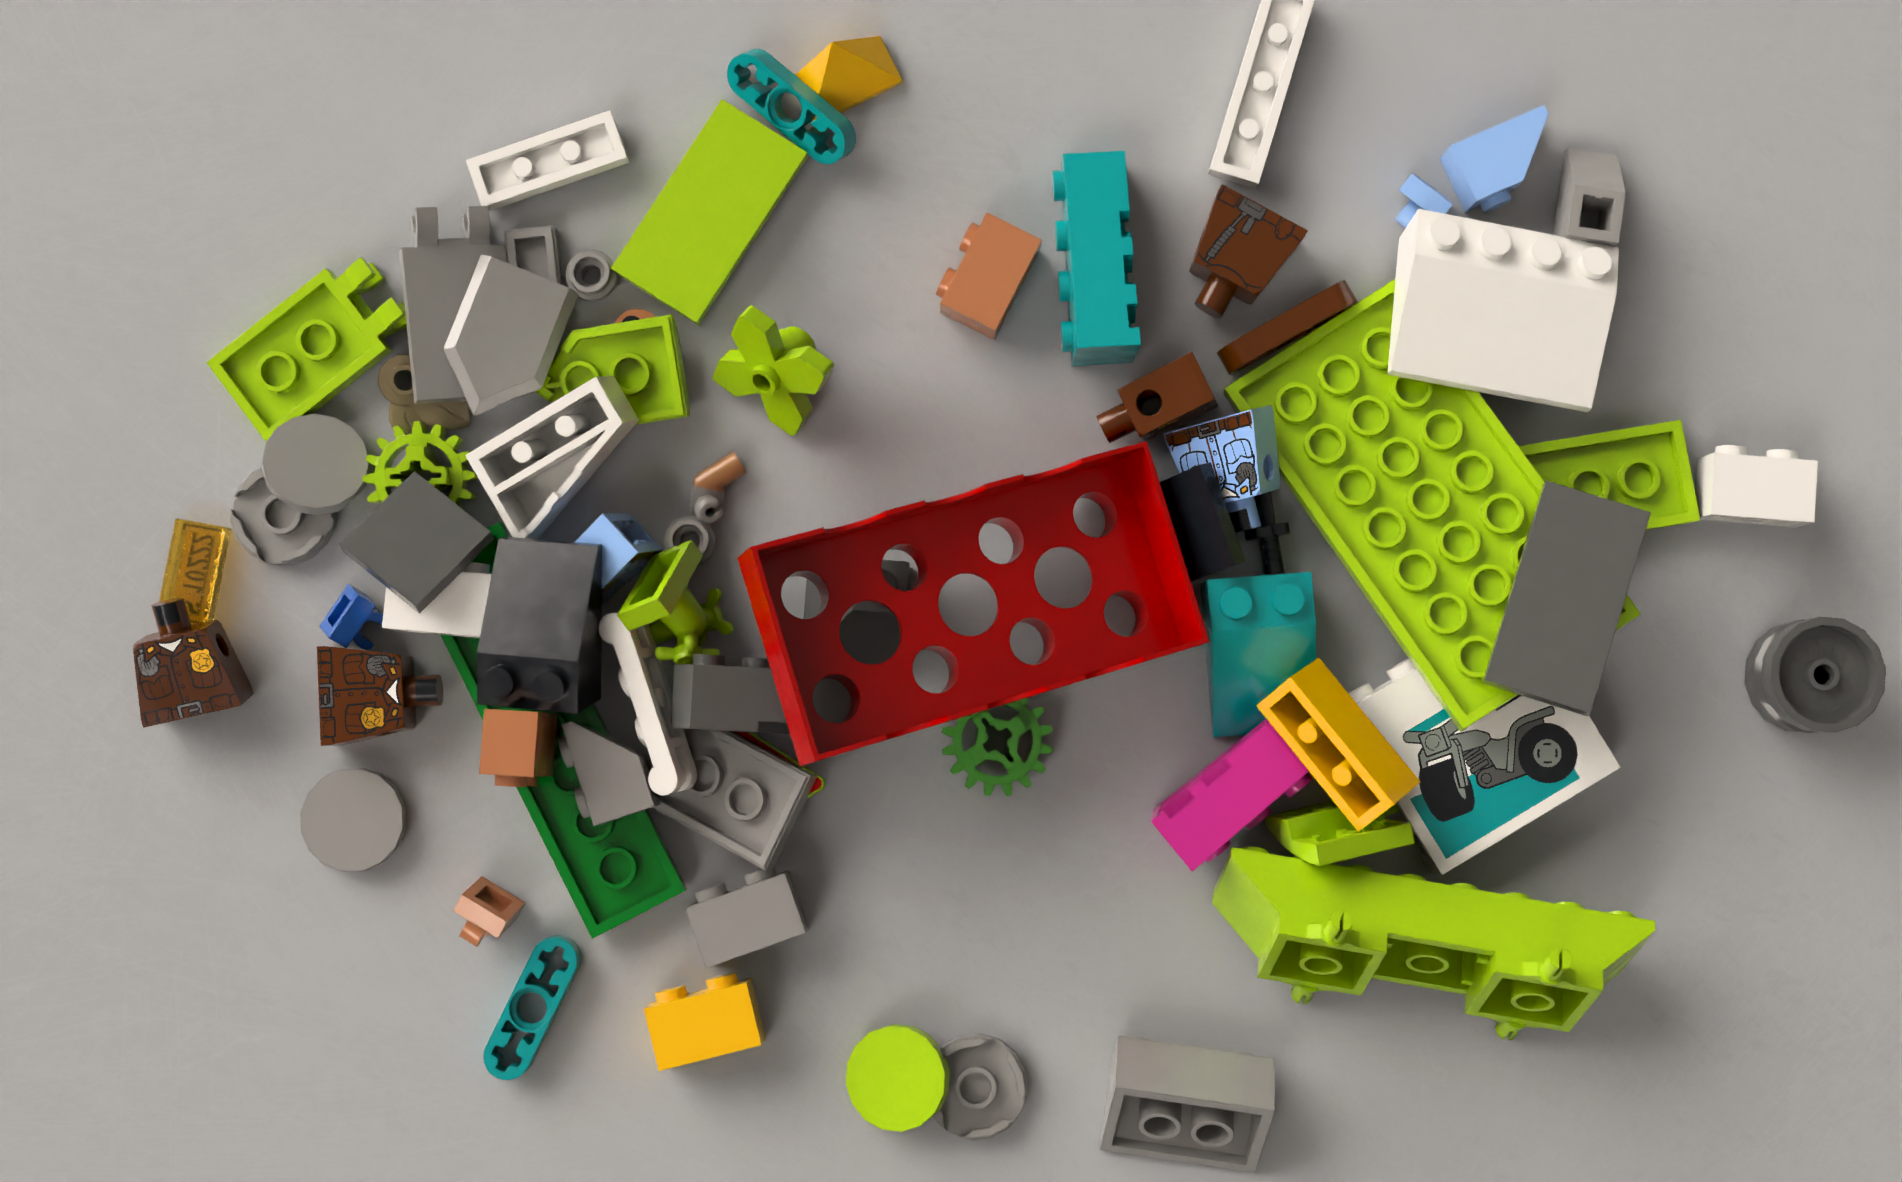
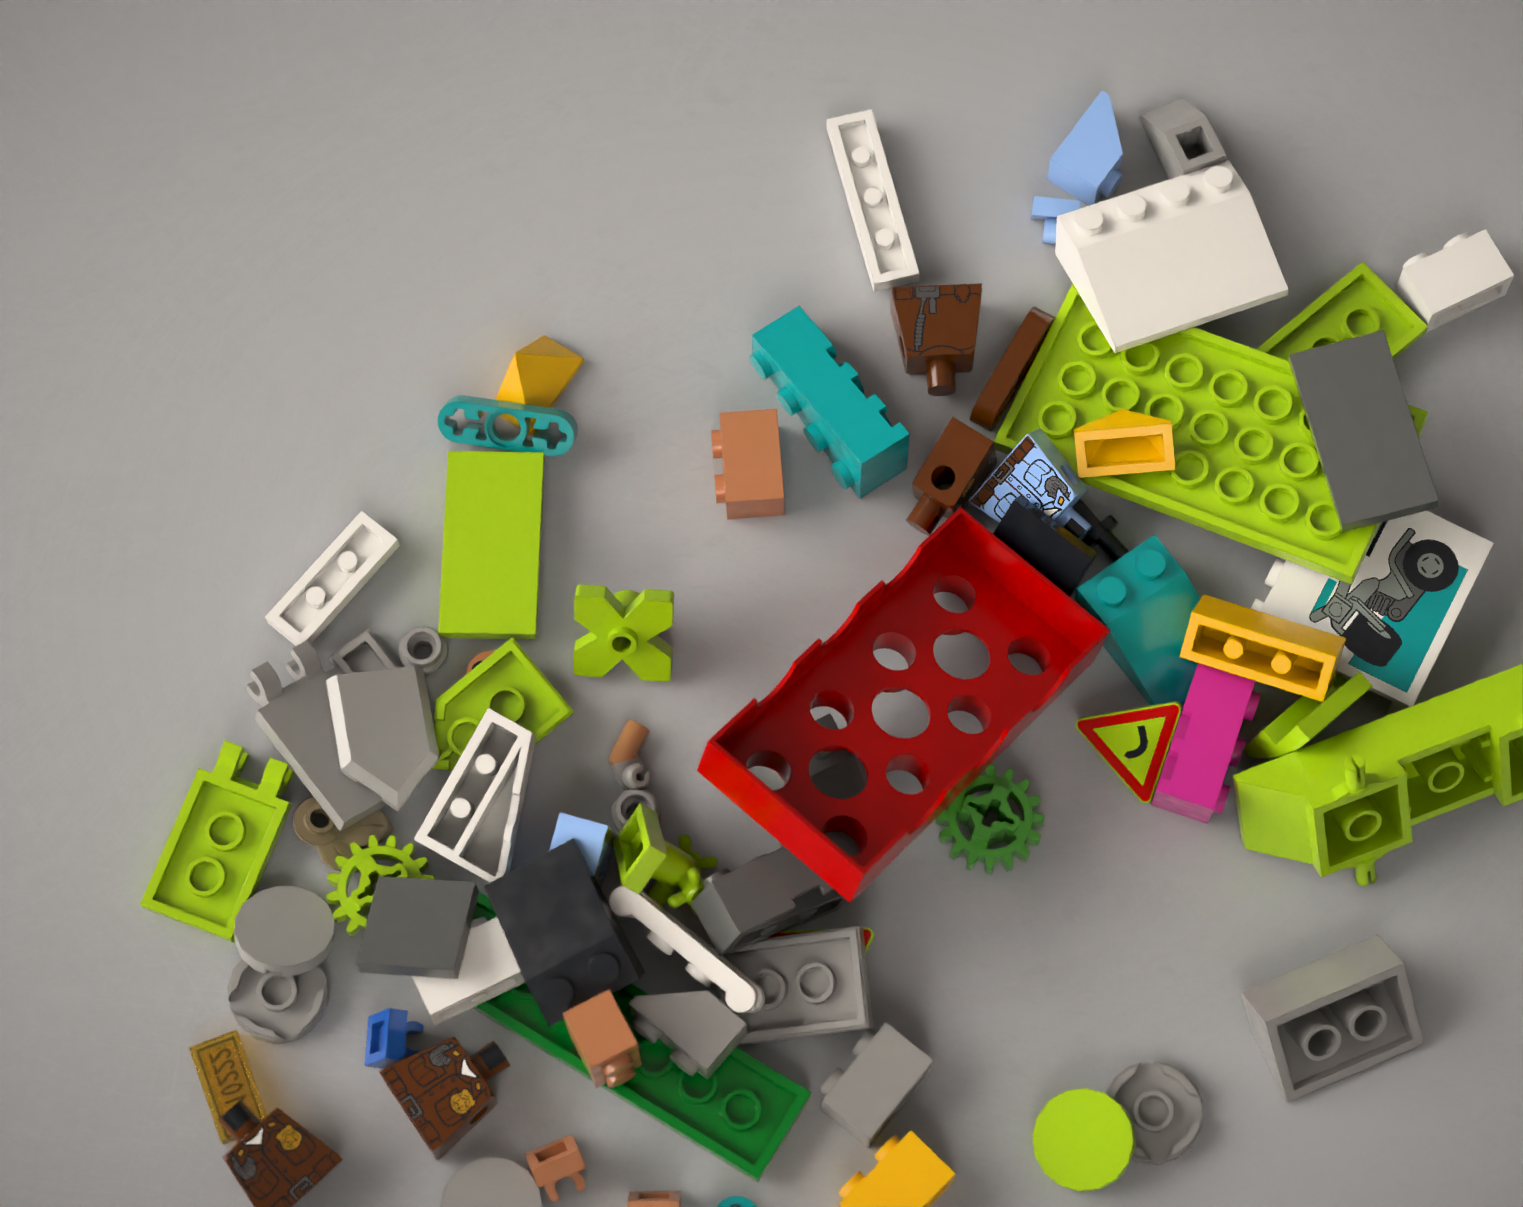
camera: 30 degrees left, 15 degrees down
(427, 816) = (555, 1162): none -> nougat tile
(1170, 749) = (1134, 743): none -> piece
(1339, 469) = (1124, 445): none -> yellow slope

